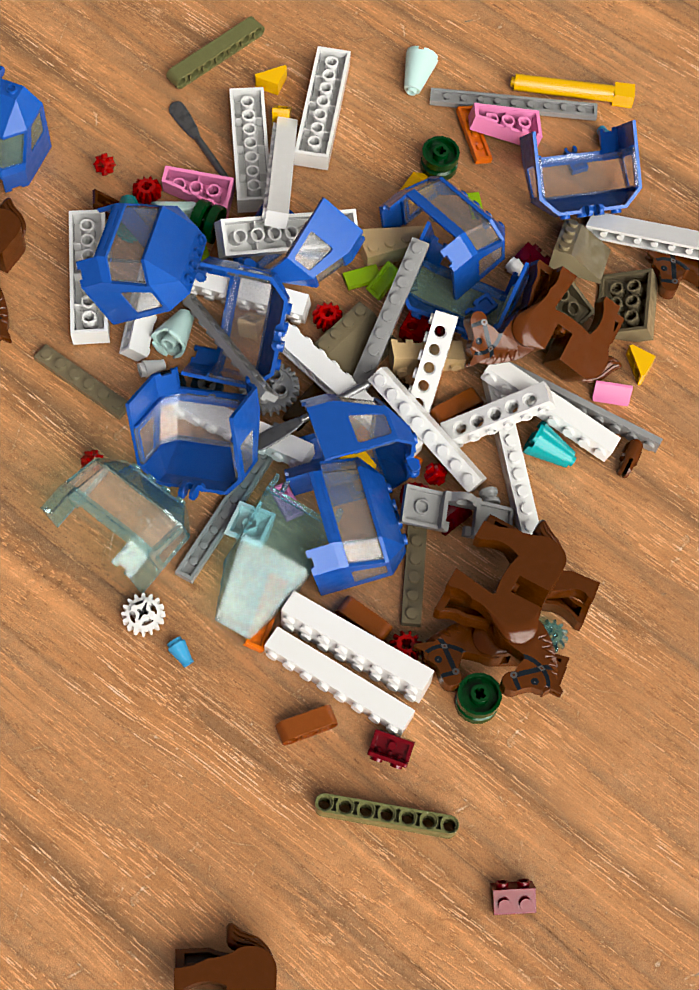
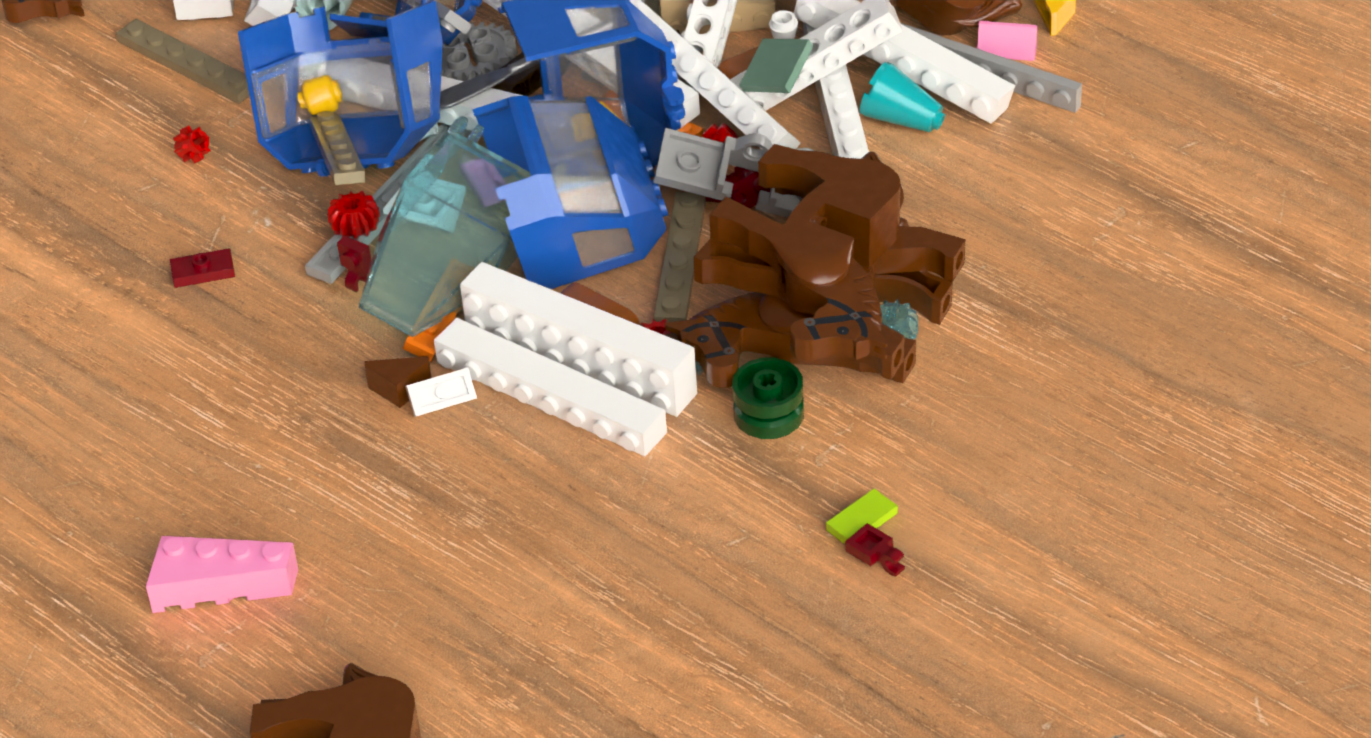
camera: 10 degrees right, 20 degrees down
(103, 568) = (202, 268): none -> dark red plate
(132, 508) = (268, 198): clear light blue windscreen -> none
(132, 834) = (219, 570): none -> bright pink wedge
(146, 622) = (253, 315): white gear -> none
(176, 430) = (320, 95): none -> yellow head
(180, 651) = (304, 358): dark azure cone -> none
(192, 484) = (337, 148): none -> dark tan plate
(204, 528) = (353, 214): none -> red gear
(208, 574) = (356, 258): none -> dark red plate
(241, 671) = (392, 375): none -> reddish brown slope
(270, 683) = (441, 392): none -> white plate
(306, 725) = (494, 439): dark orange beam -> none
(391, 749) = (626, 463): dark red bracket -> none
(396, 812) = (612, 543): olive beam -> none
(472, 424) = (776, 65): none -> sand green tile
(475, 390) = (783, 25): none -> white cone
(513, 897) = (810, 640): bracket -> none
(539, 794) = (870, 509): none -> lime tile
(547, 821) = (873, 546): none -> dark red plate
(629, 457) = (1031, 112): reddish brown arm -> none

